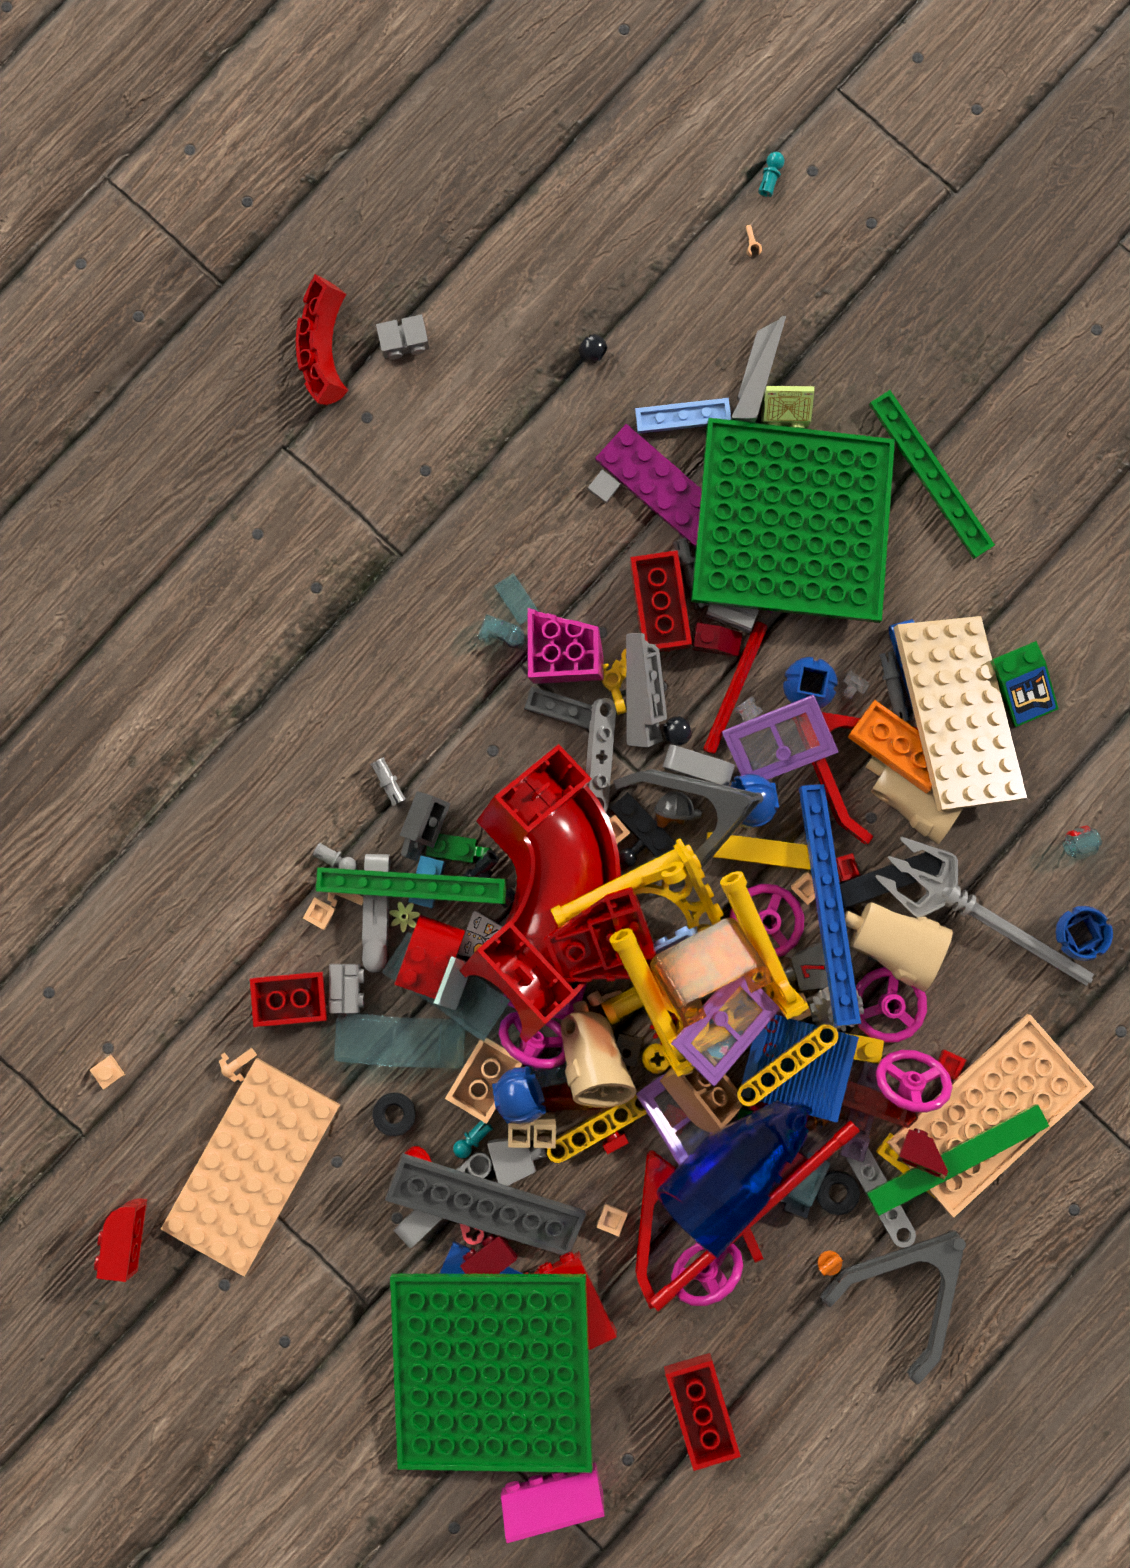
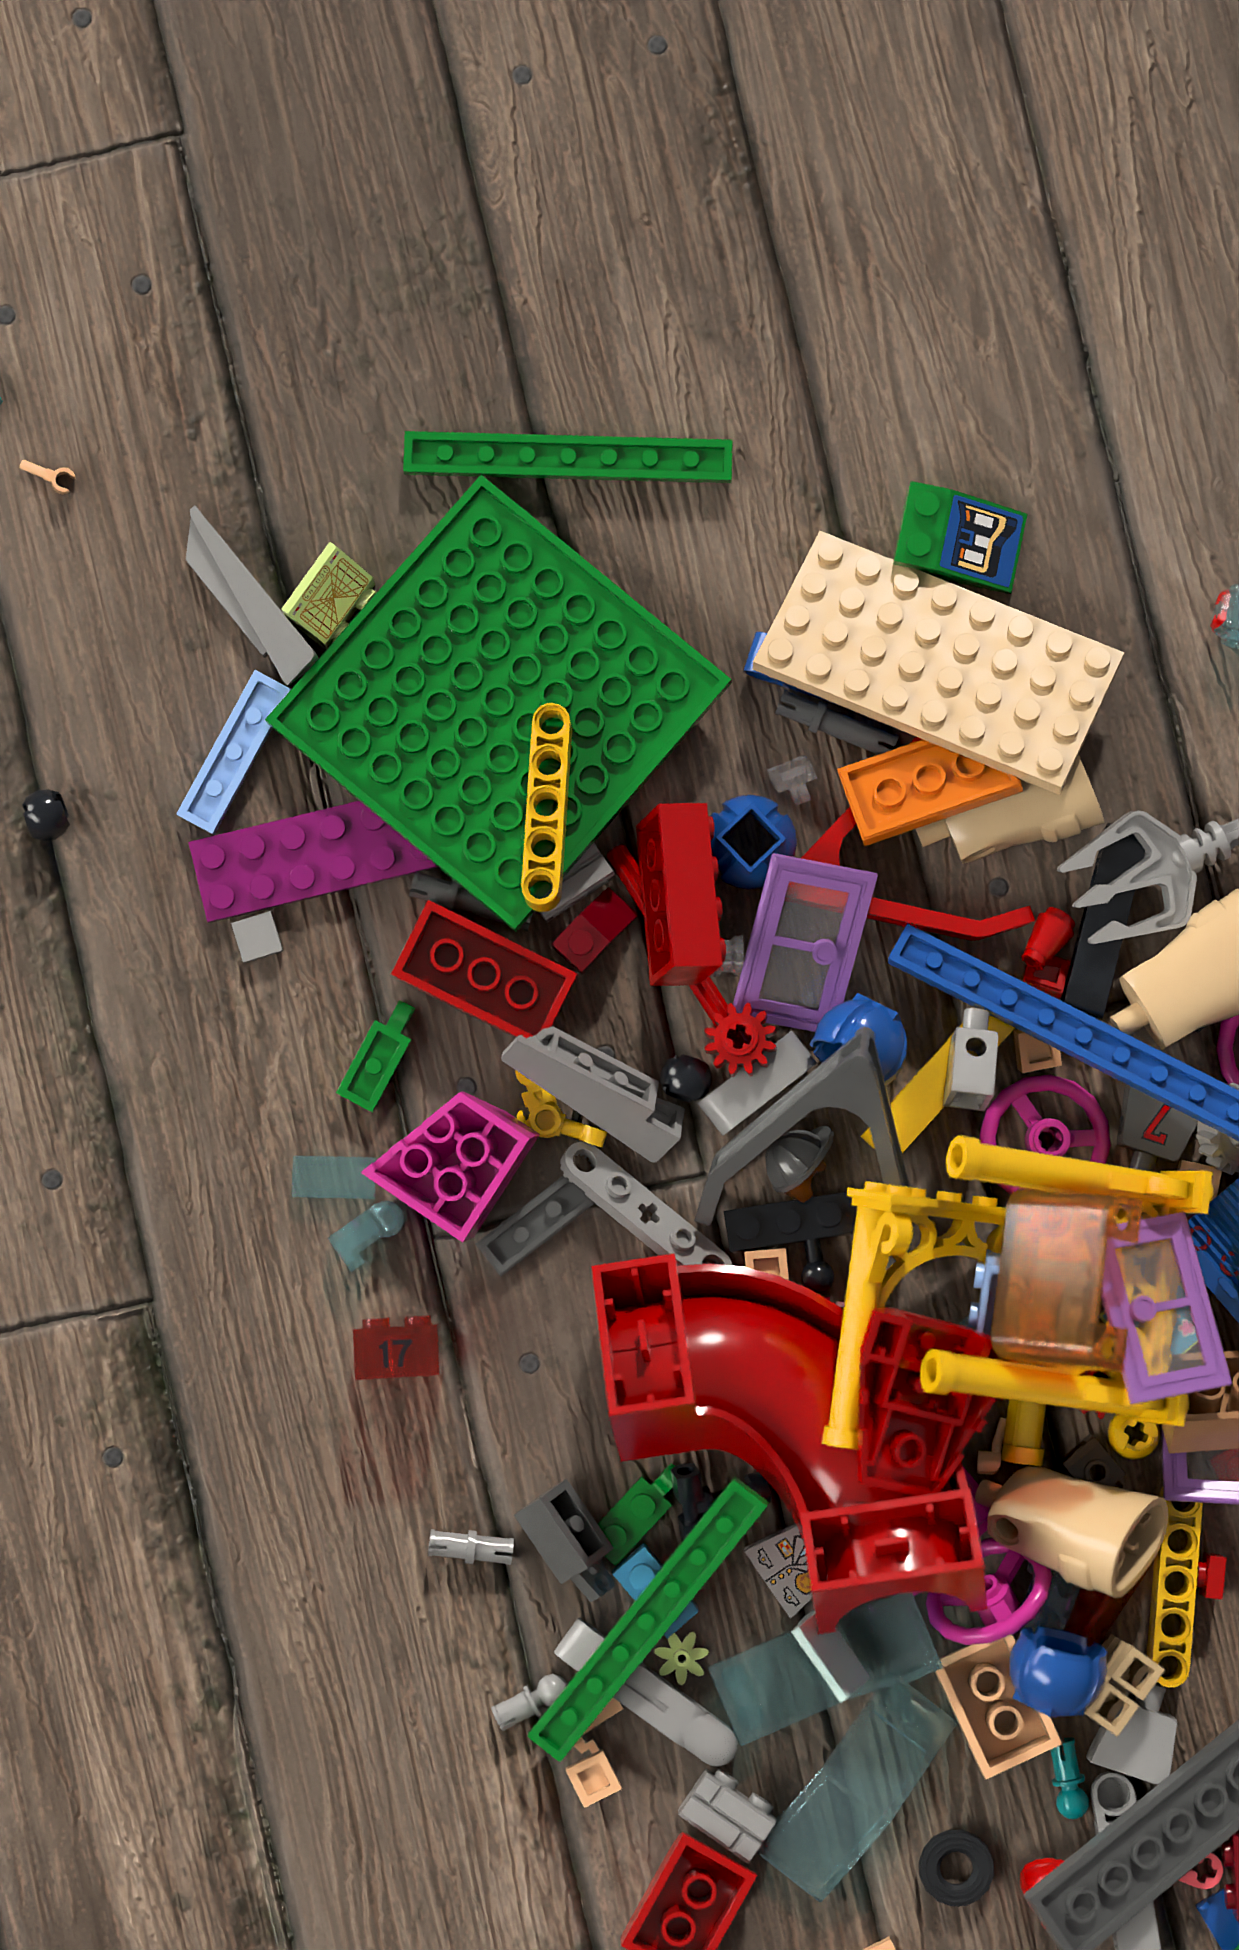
camera: 60 degrees left, 0 degrees up
(428, 956) = (766, 1661): red brick -> none
(456, 682) = (397, 1349): none -> clear red brick
(586, 581) = (377, 1059): none -> green plate
(709, 750) = (731, 1026): none -> red gear
(763, 666) = (680, 894): none -> red brick
(768, 566) = (546, 787): none -> yellow beam
(774, 862) = (969, 1077): none -> light grey torso
(864, 856) = (1049, 935): none -> red cone

